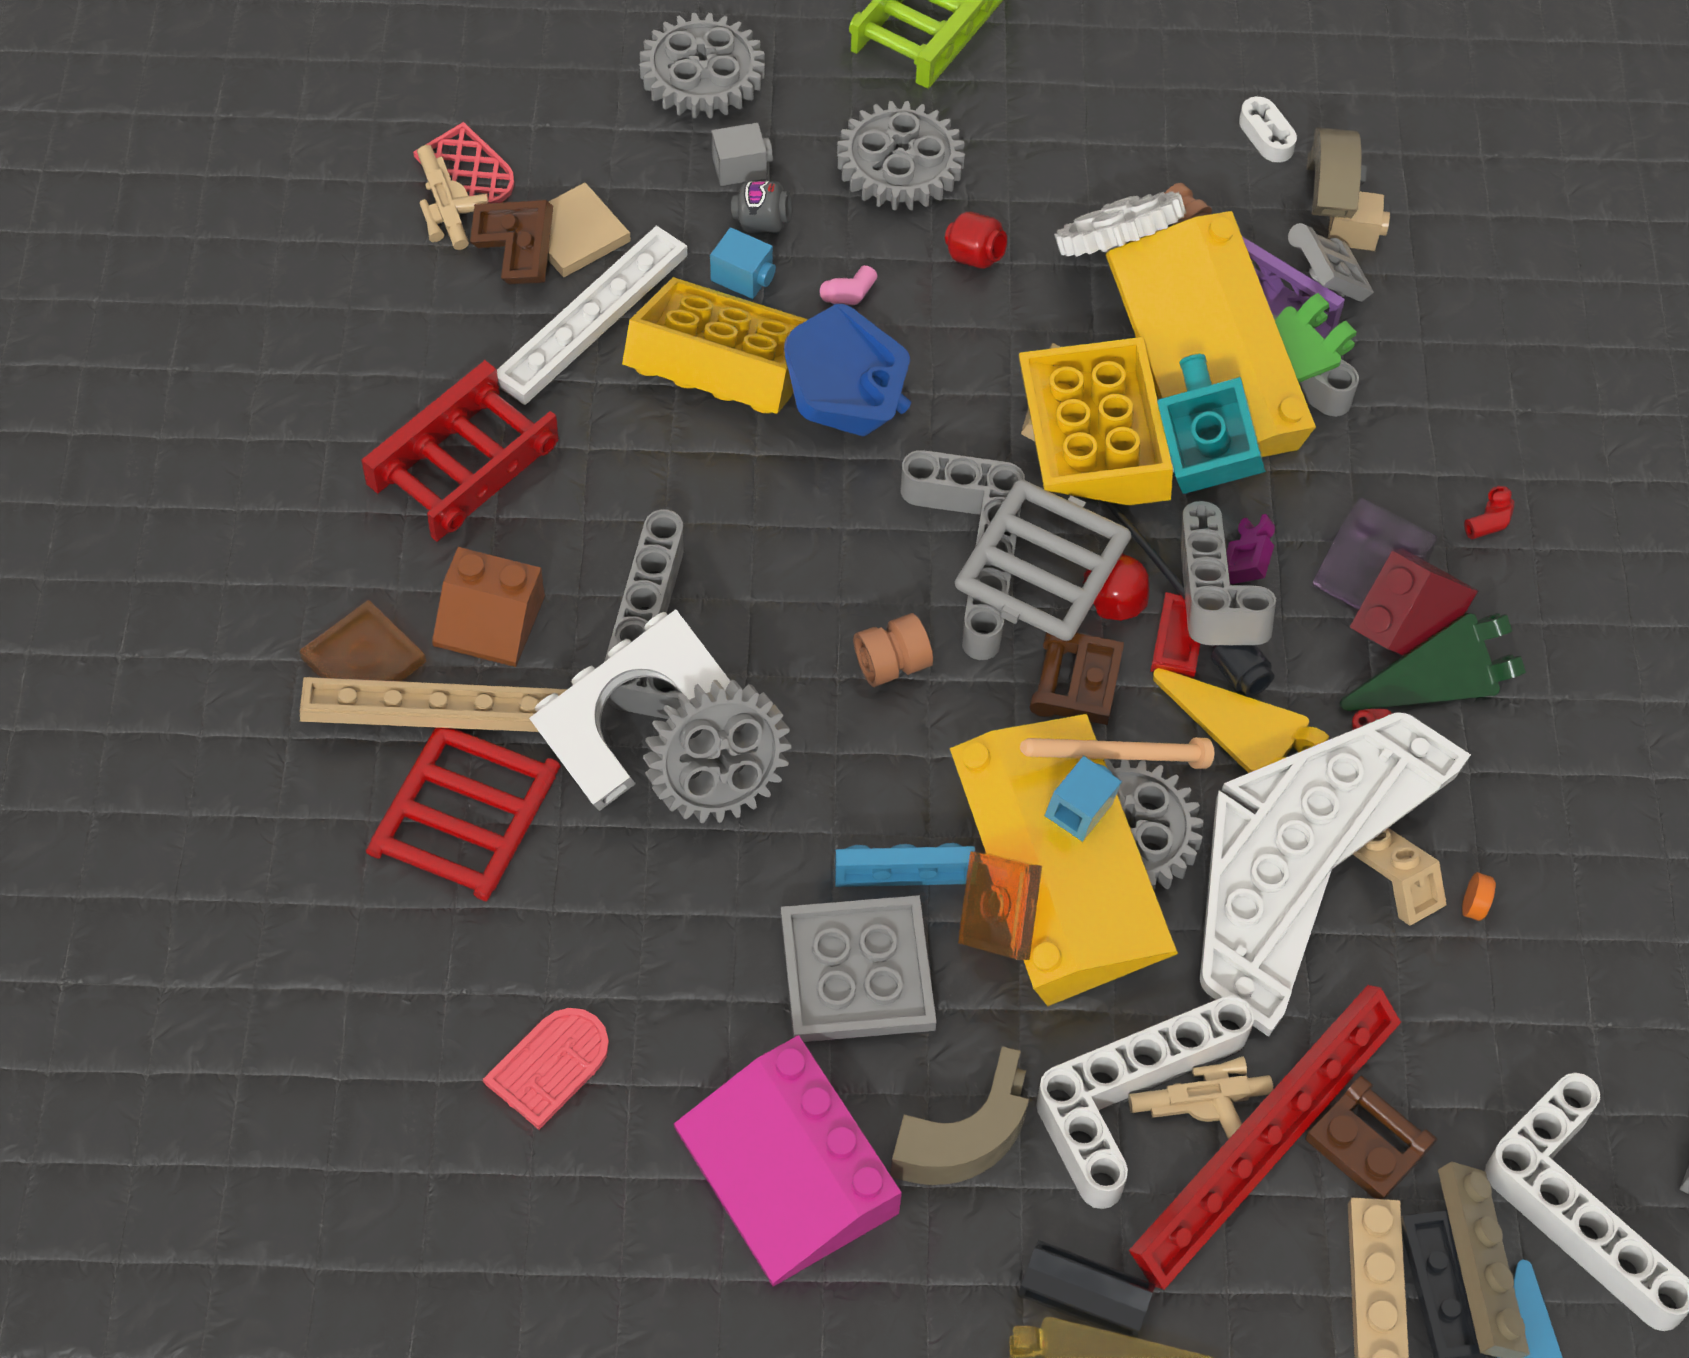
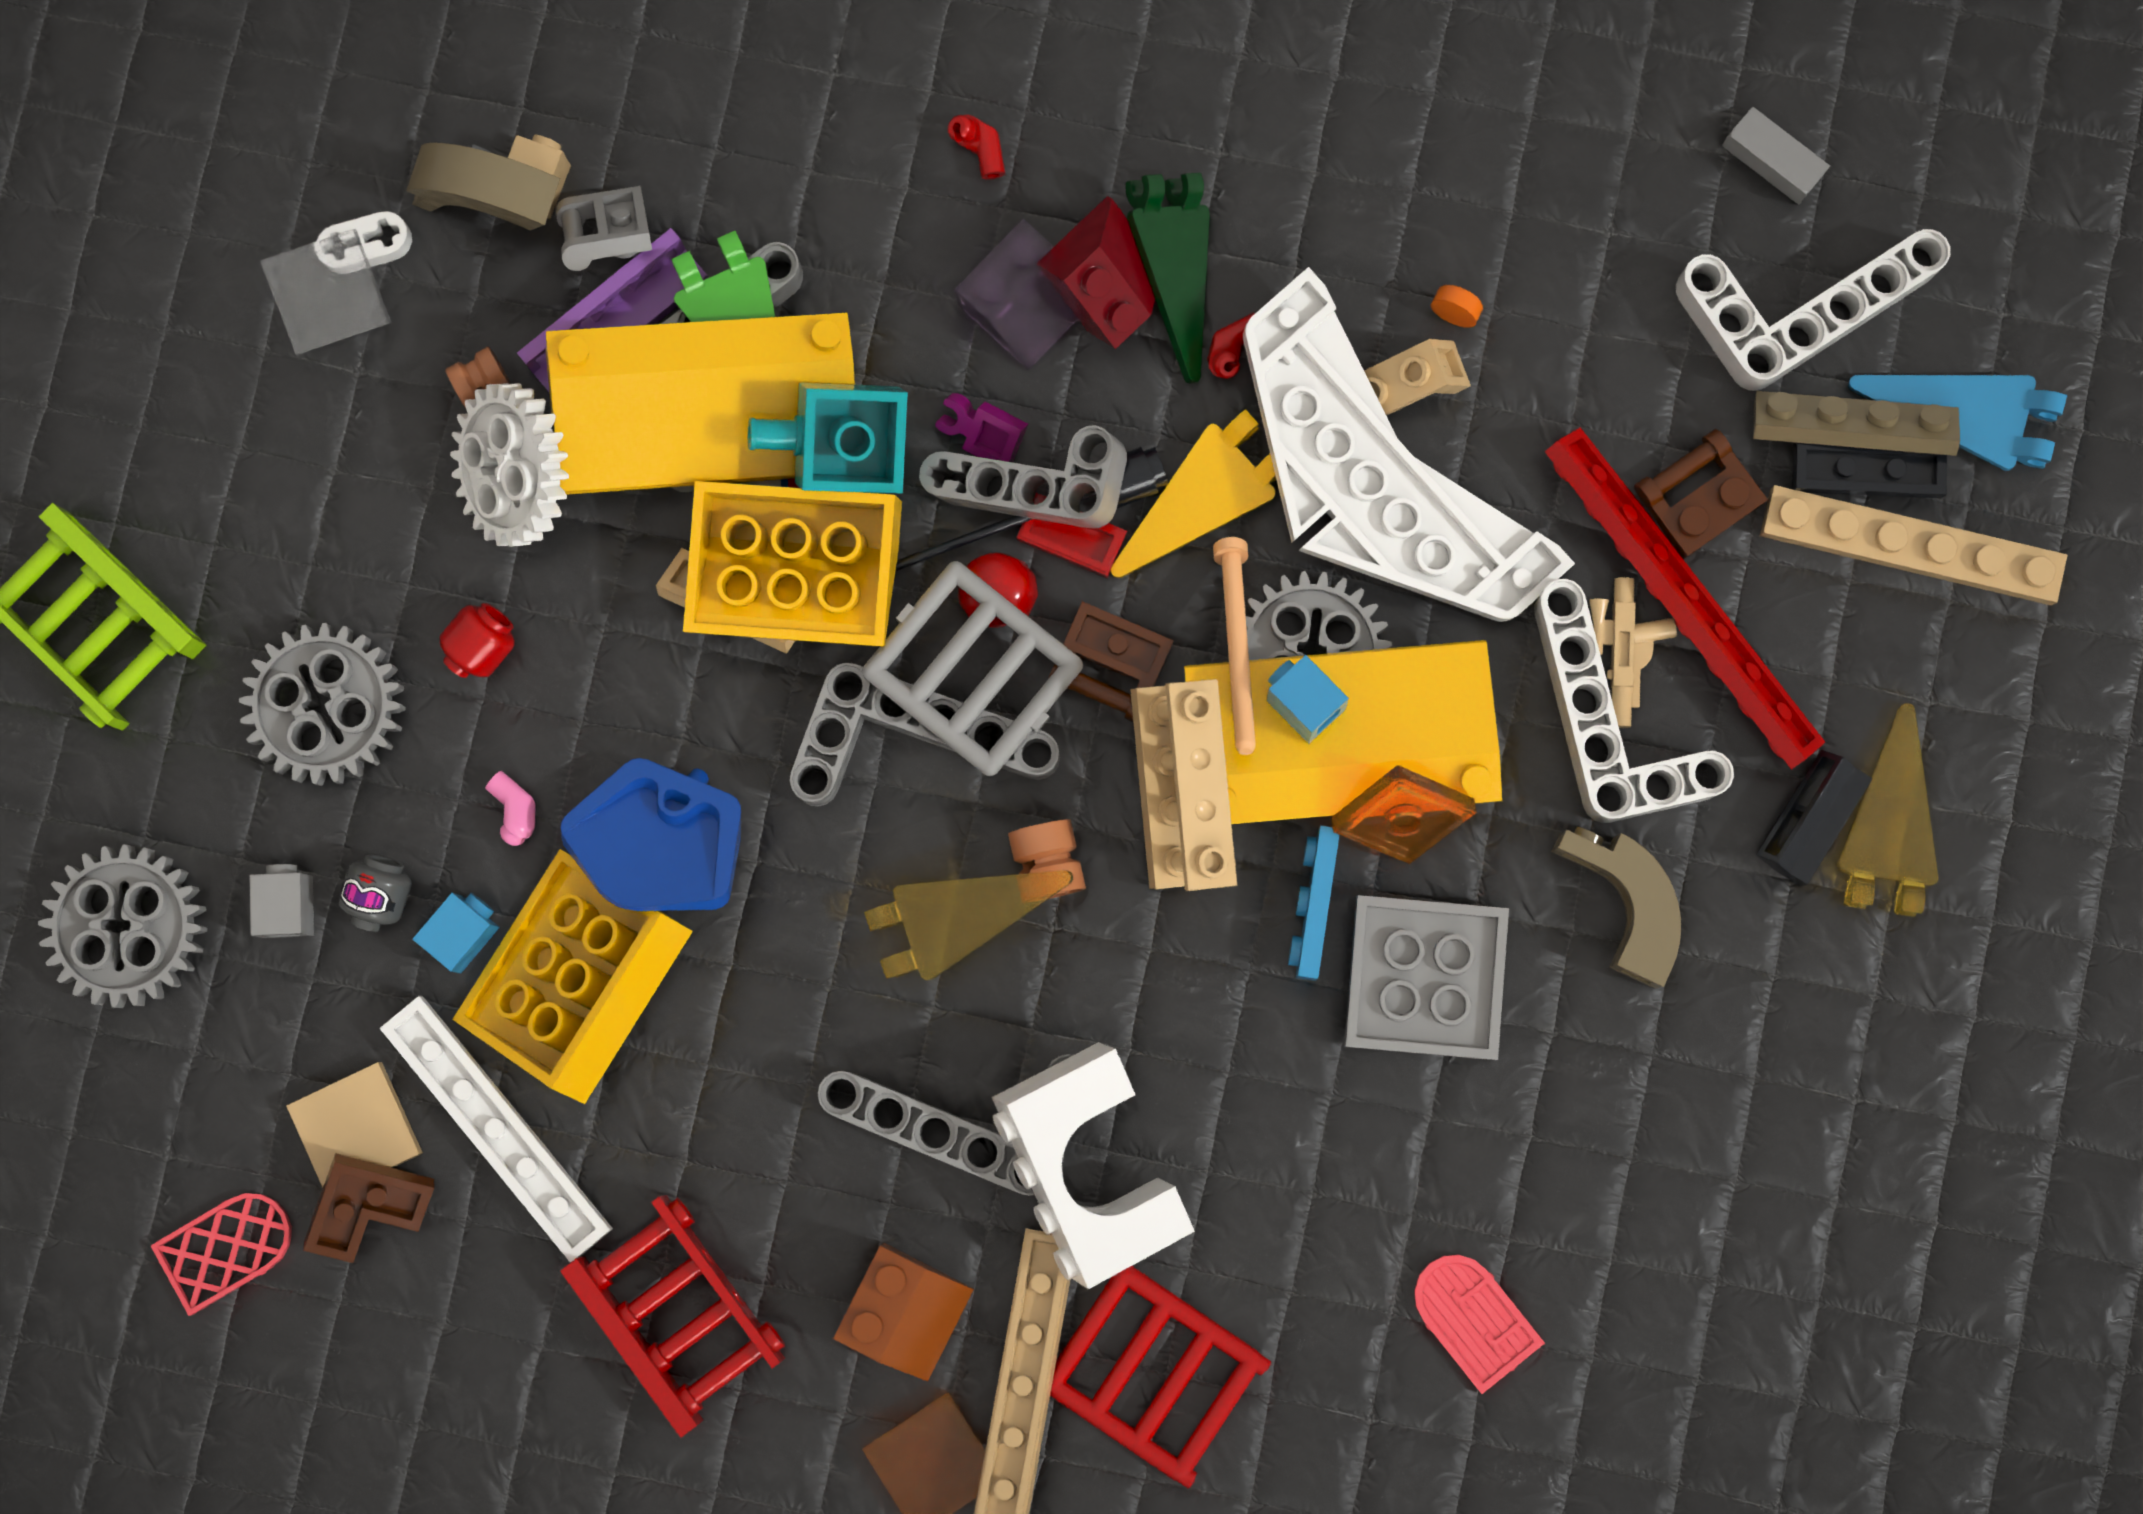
camera: 70 degrees left, 25 degrees up
(450, 200) = (278, 1279): tan piece -> none
(717, 751) = (1166, 1085): light grey gear -> none
(788, 1161) = (1633, 1092): dark pink slope -> none
(829, 587) = (958, 916): none -> clear yellow flag
(929, 731) = (1183, 785): none -> tan fence
(1221, 107) = (325, 291): none -> clear tile

